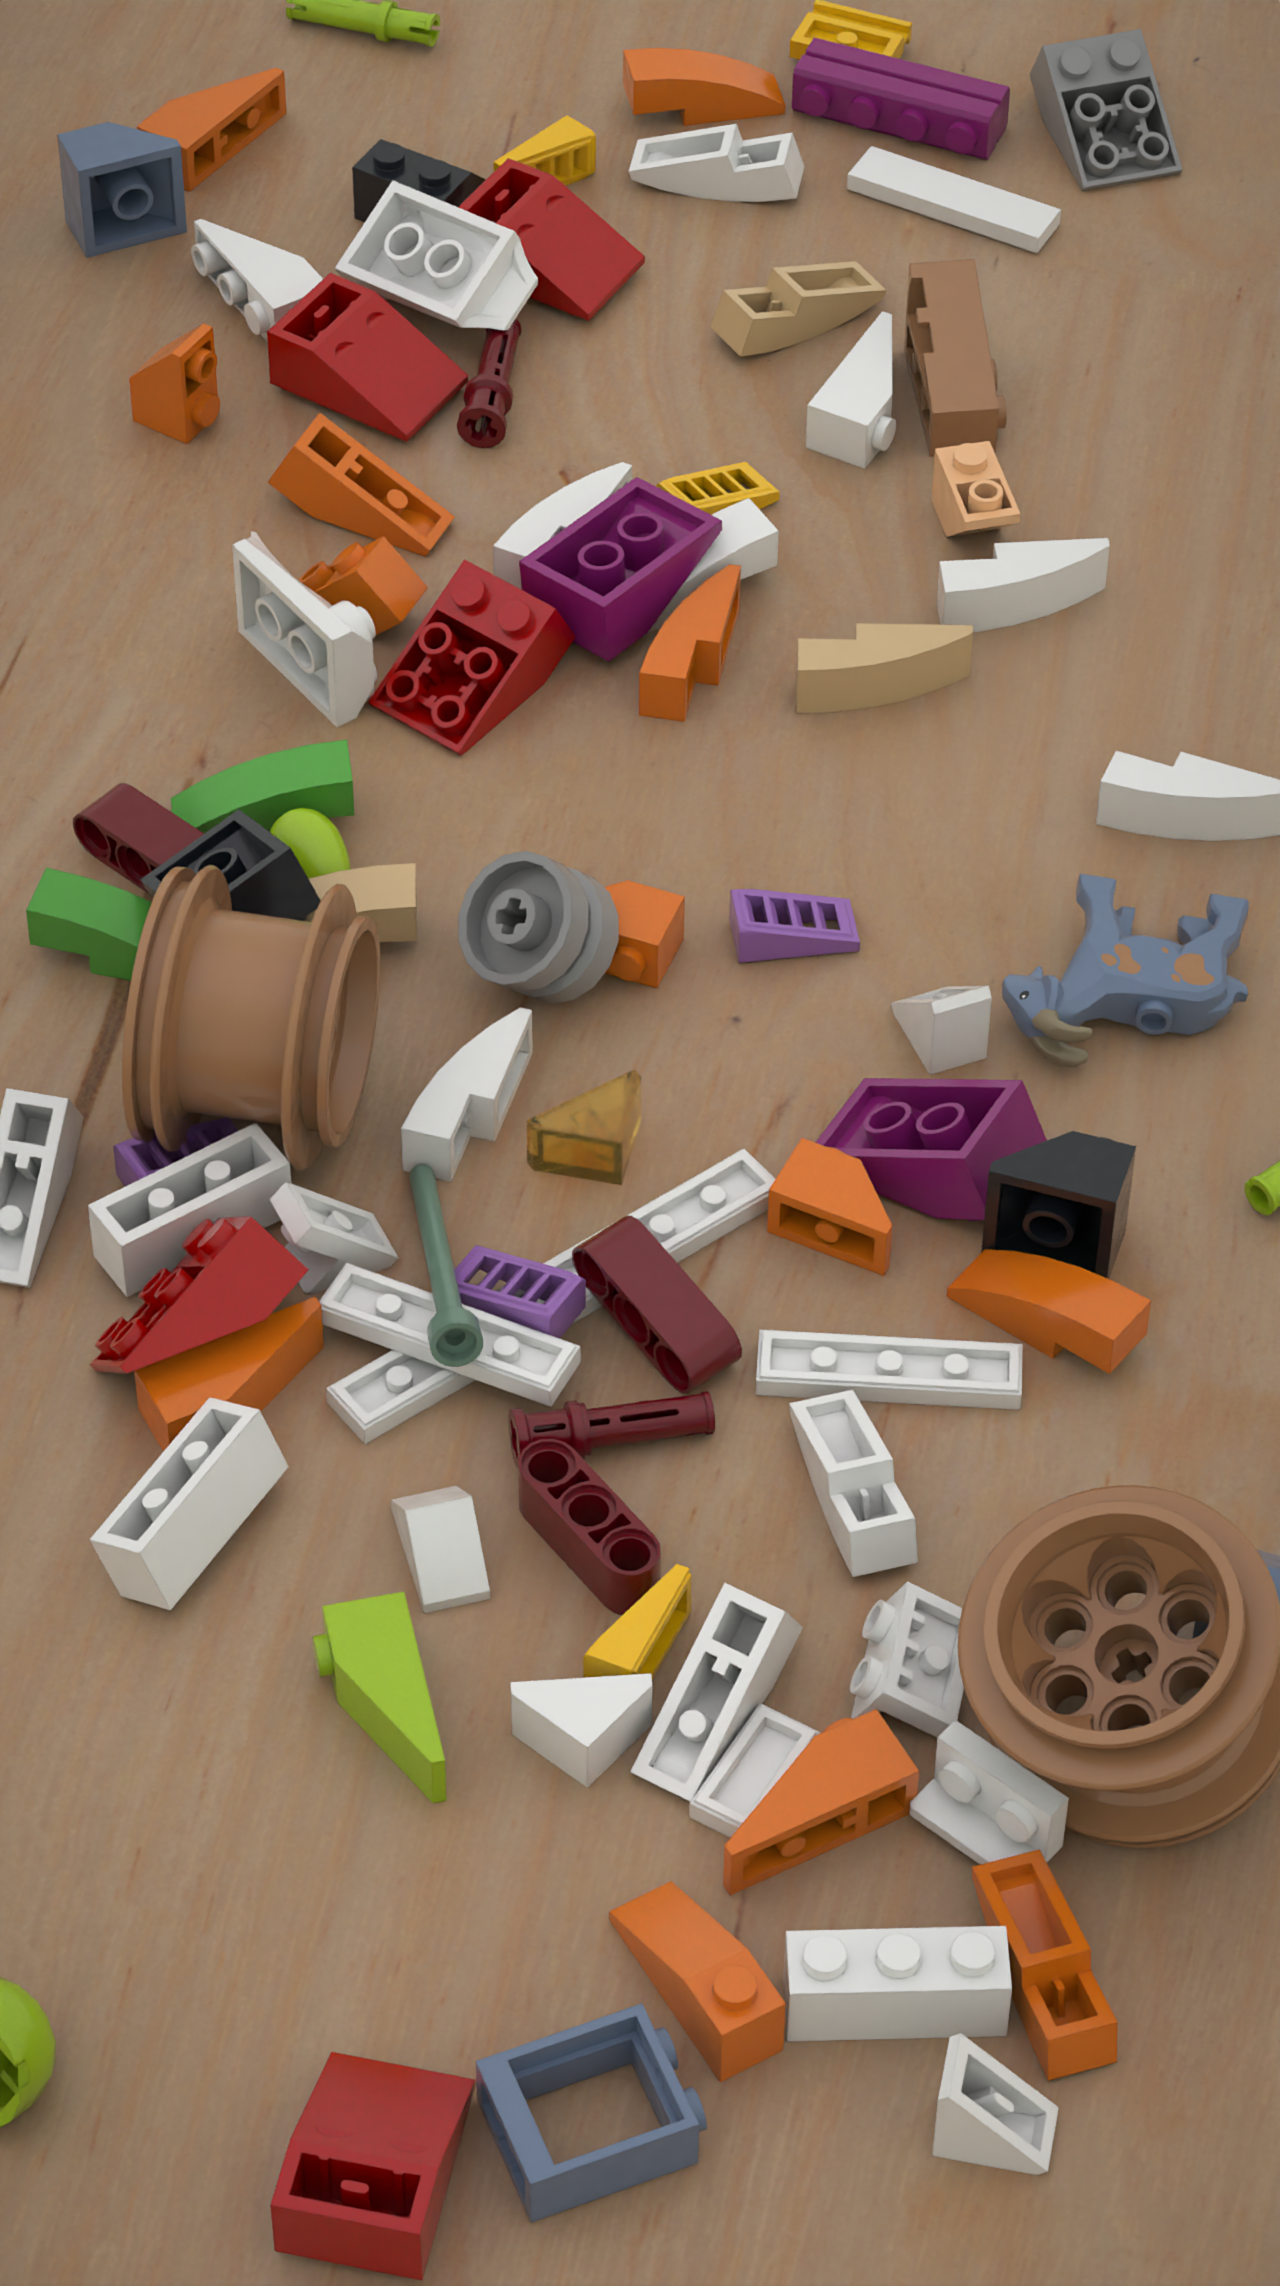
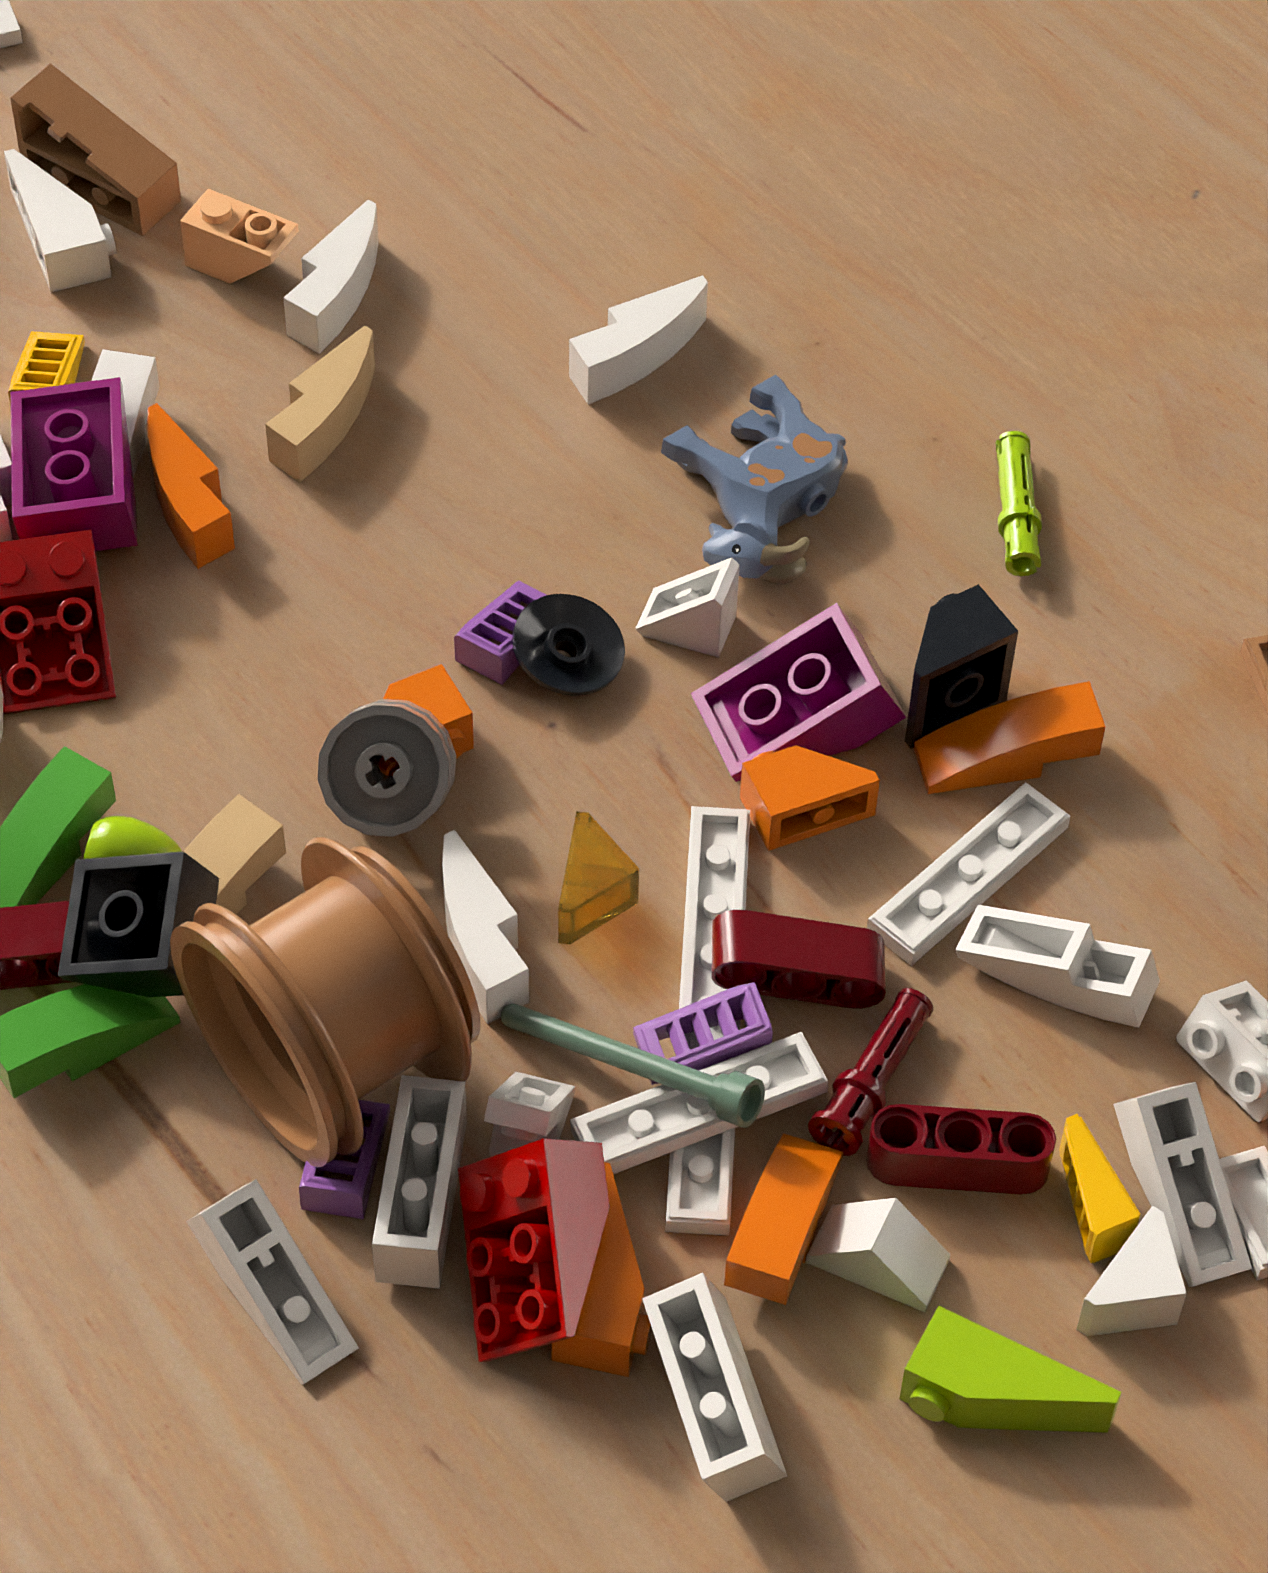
camera: 50 degrees left, 5 degrees up
(402, 1452) = (782, 1218): none -> orange slope
(814, 943) = (577, 628): none -> black dish

